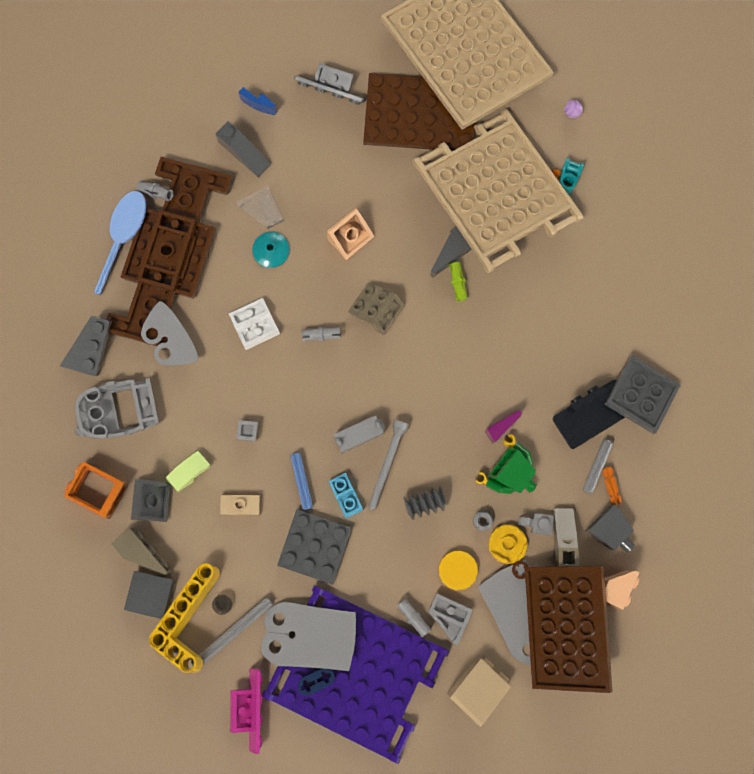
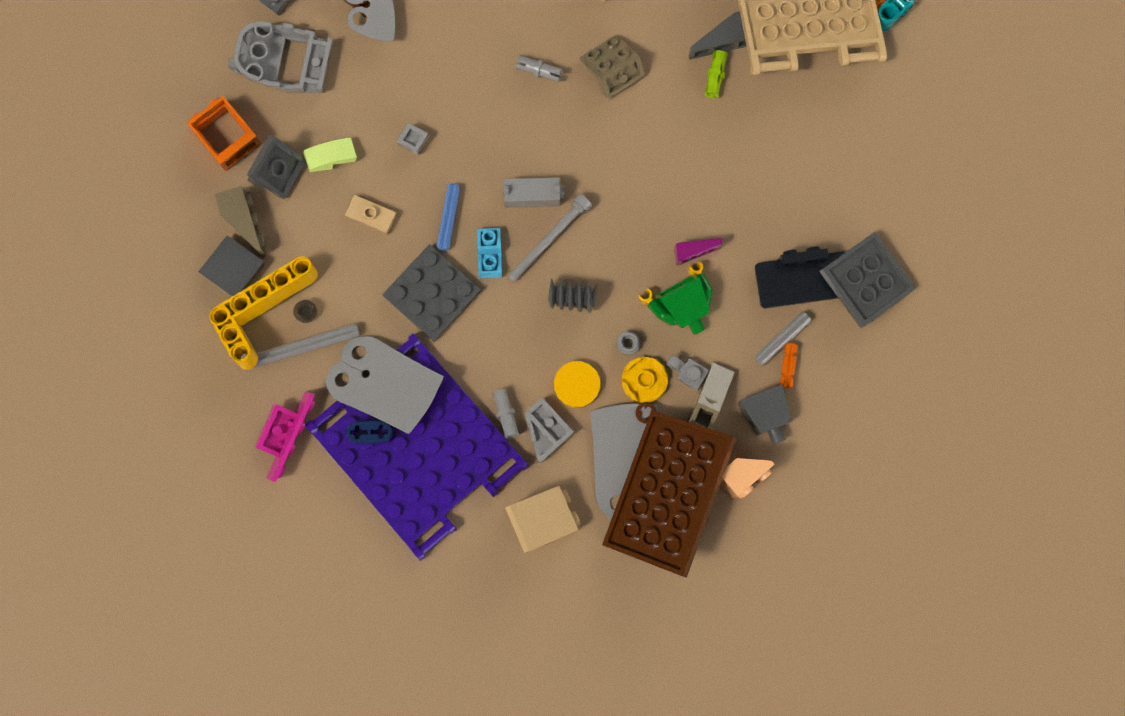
camera: 25 degrees right, 0 degrees up
(254, 324) = (471, 28): white slope -> none

